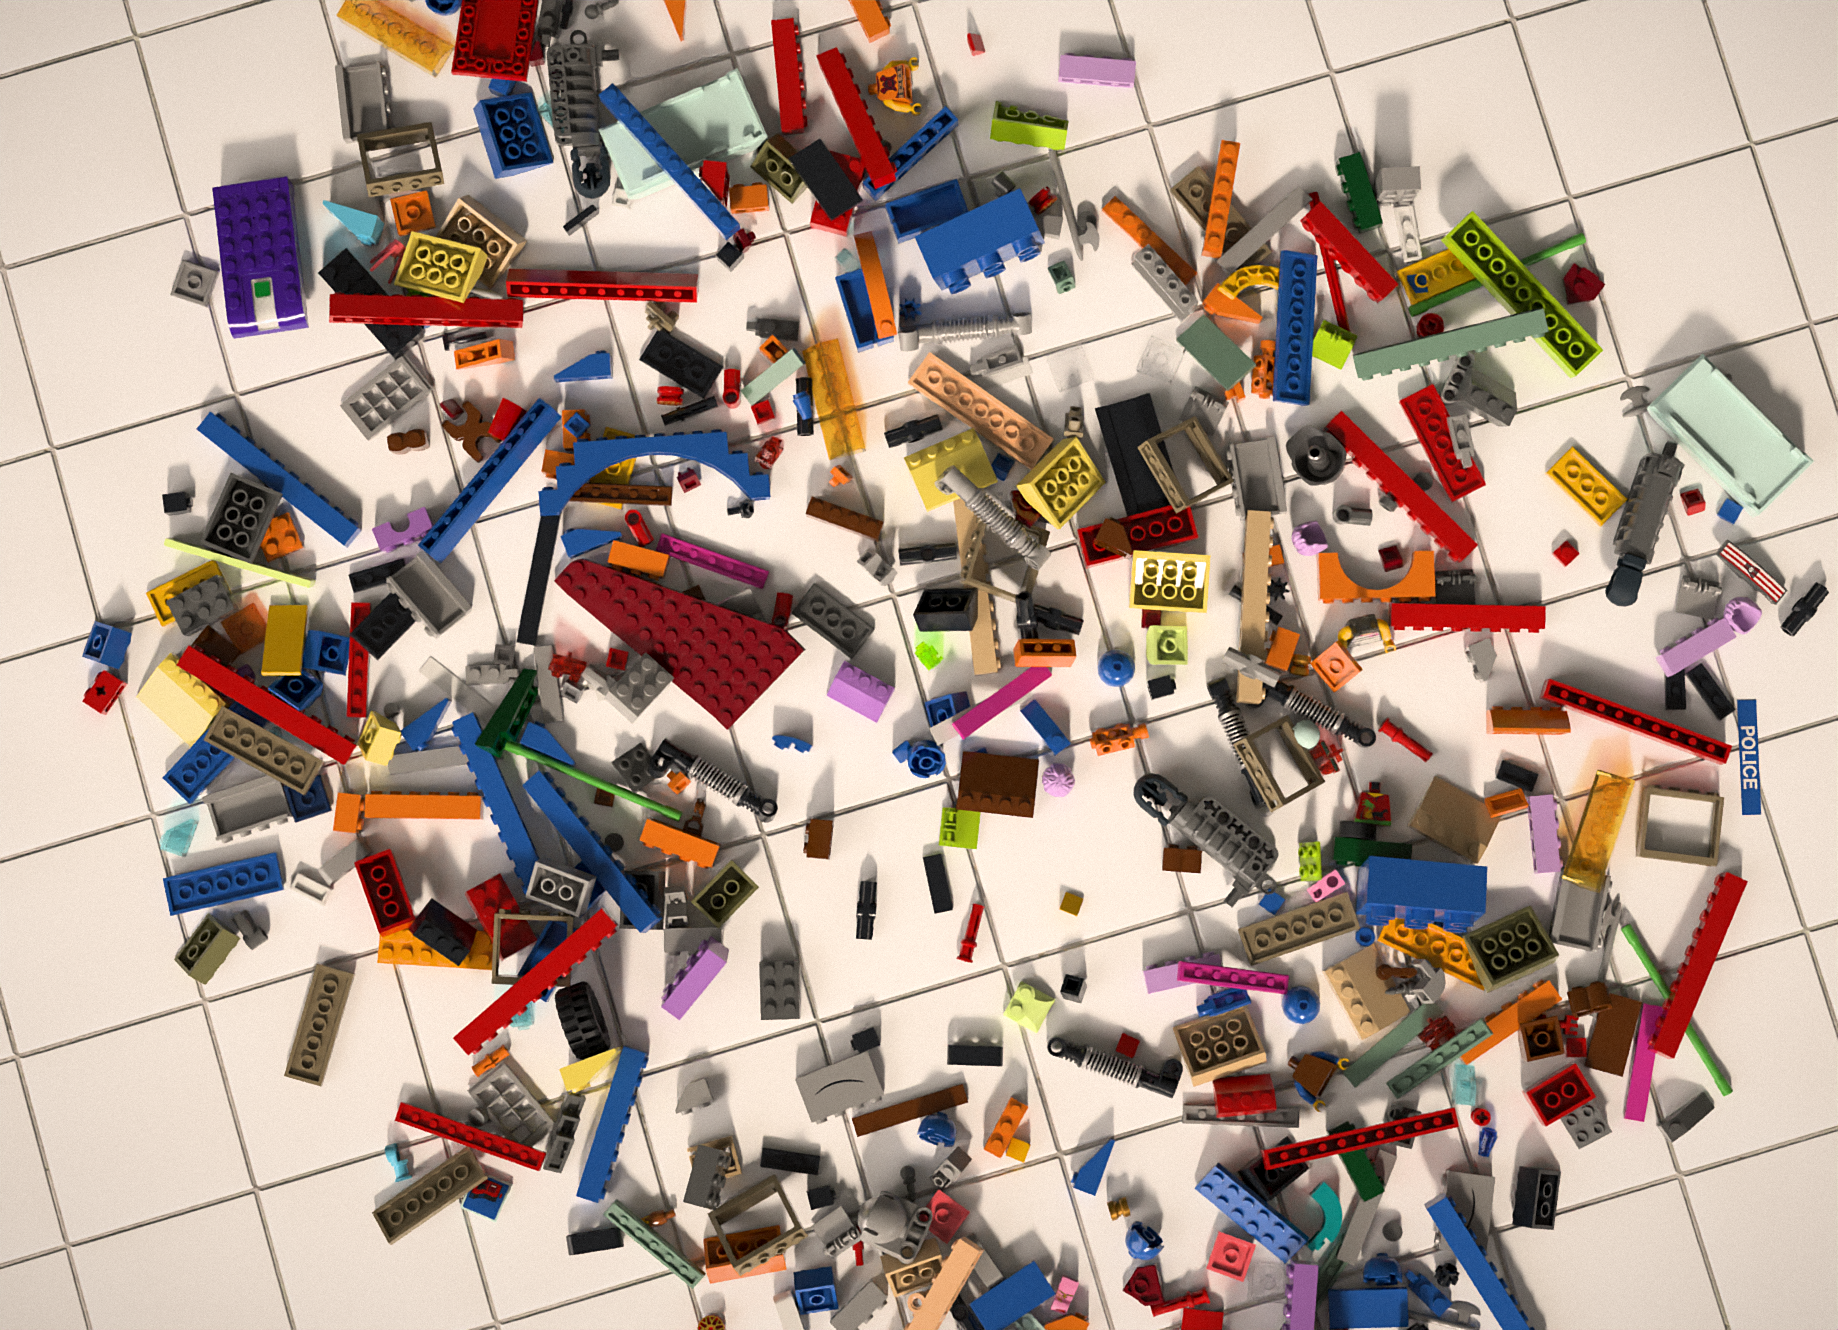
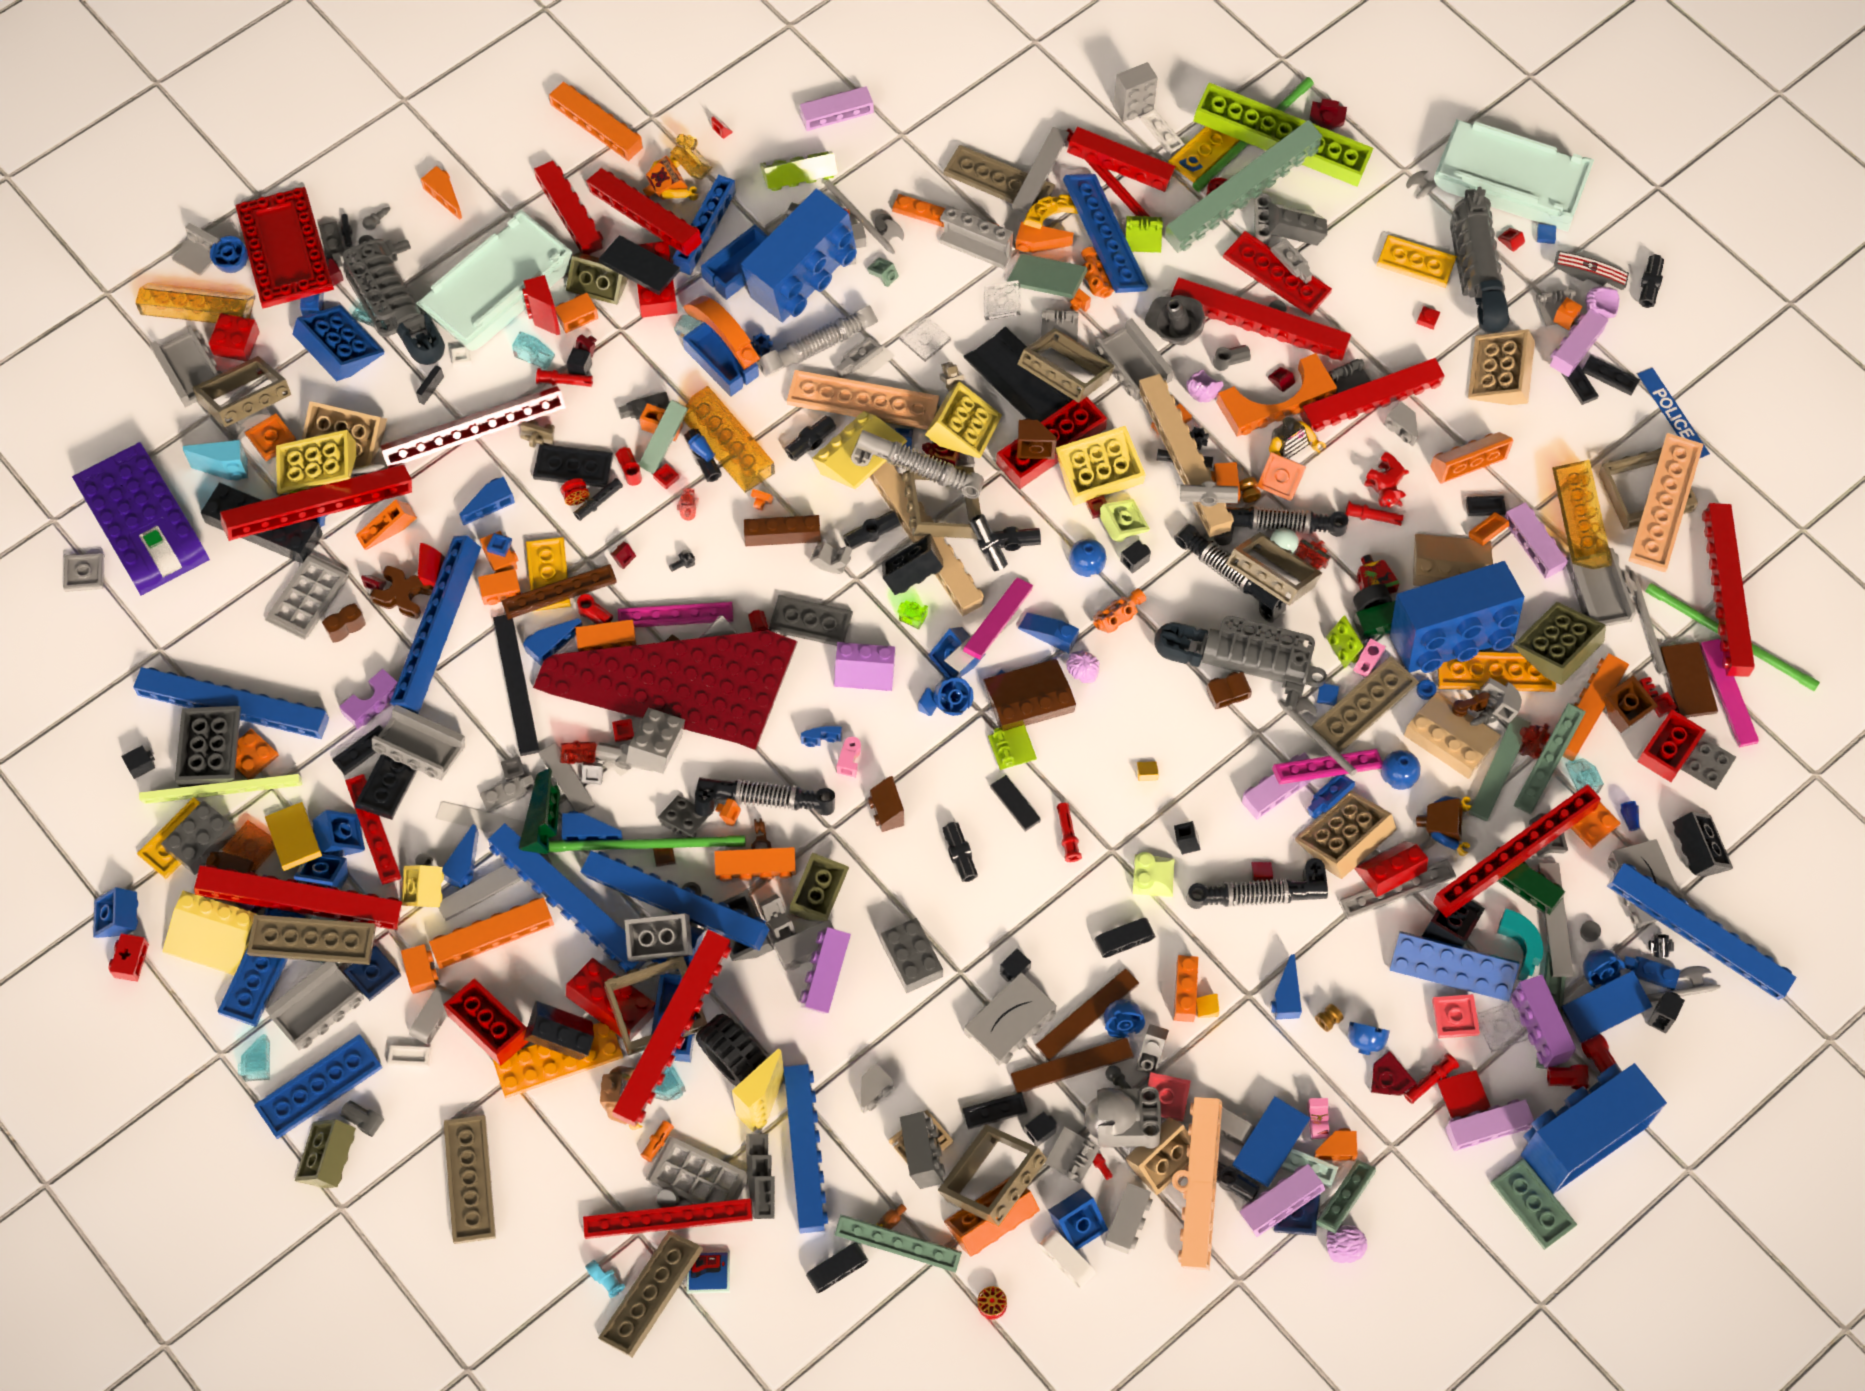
camera: 30 degrees left, 20 degrees down
(395, 250) = (265, 473): coral plant -> none
(417, 89) = (234, 337): none -> red brick
(463, 339) = (360, 522): black piece -> none
(474, 1001) = (612, 1088): none -> medium nougat torso
(597, 455) = (621, 521): blue arch -> none
(669, 161) = (493, 296): blue brick -> none
(691, 224) = (532, 350): none -> clear light blue slope
(701, 262) = (554, 378): none -> red pin
(807, 773) = (850, 751): none -> bright pink leg
(875, 1150) = (1072, 1065): none -> reddish brown tile
(928, 70) = (690, 157): none -> clear yellow hinge
(1044, 652) = (1017, 564): orange brick -> none
(1220, 199) = (991, 158): orange brick -> none
(1246, 904) = (1306, 705): none -> light grey piece
(1359, 193) = (1105, 115): dark green brick -> none
(1387, 504) = (1256, 336): dark grey tile -> none
(1434, 714) = (1386, 482): none -> red animal
(1453, 1138) = (1596, 826): none -> orange plate
(1483, 1122) = (1617, 795): red bush -> none
(1589, 999) = (1653, 655): reddish brown brick -> none
(1607, 641) = (1502, 367): none -> tan slope
(1635, 722) = (1562, 418): red brick -> none
(1684, 855) = (1666, 502): none -> light nougat plate
(1685, 1117) = (1791, 723): dark grey slope -> none
(1700, 612) = (1567, 313): none -> orange brick

